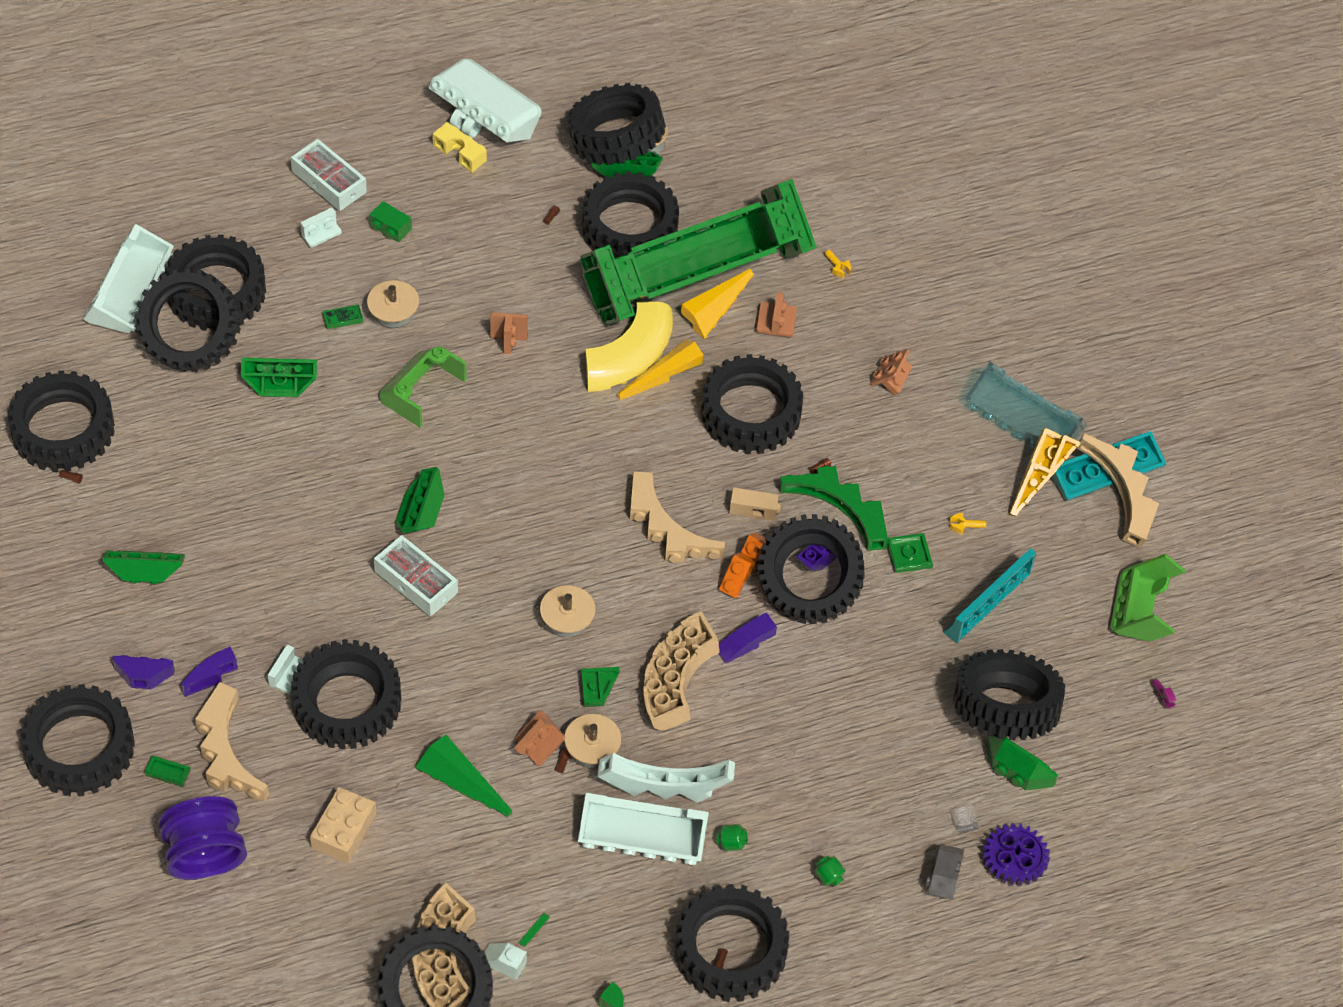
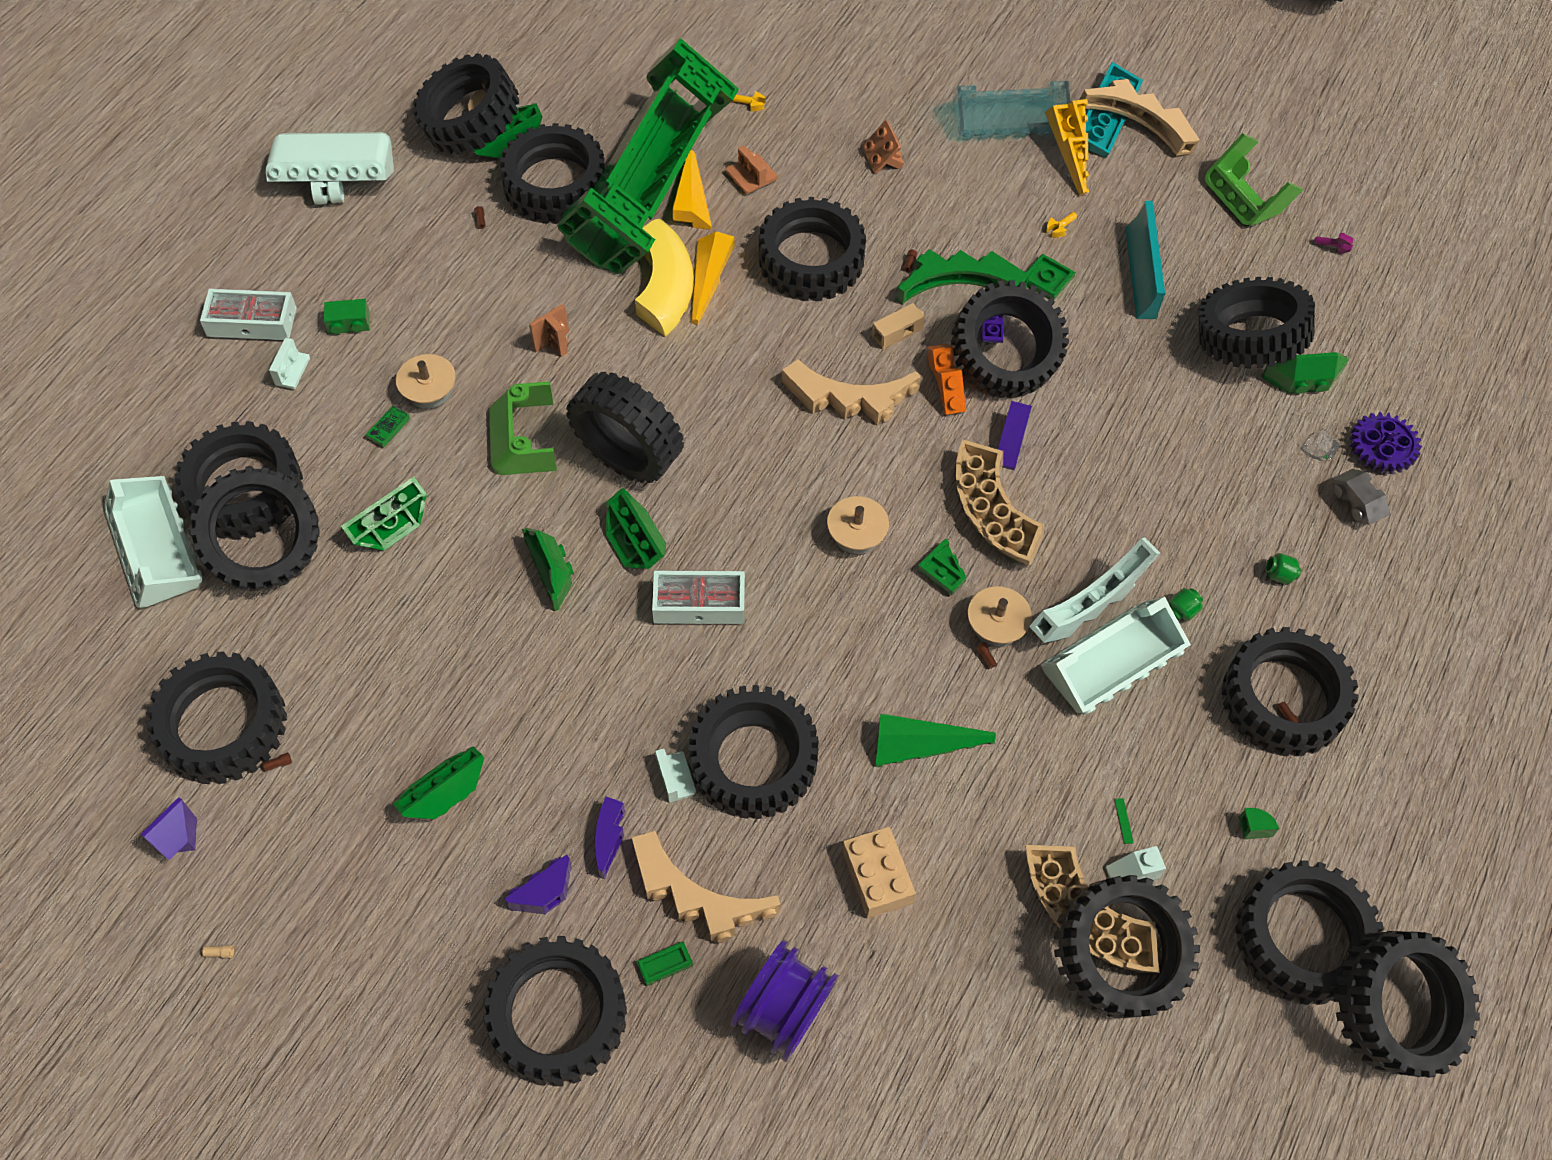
camera: 40 degrees left, 5 degrees up
(347, 485) = (550, 564): none -> green wedge
(451, 138) = (327, 212): light yellow arch -> none
(473, 426) = (651, 434): none -> black tyre
(539, 738) = (953, 651): nougat bracket -> none

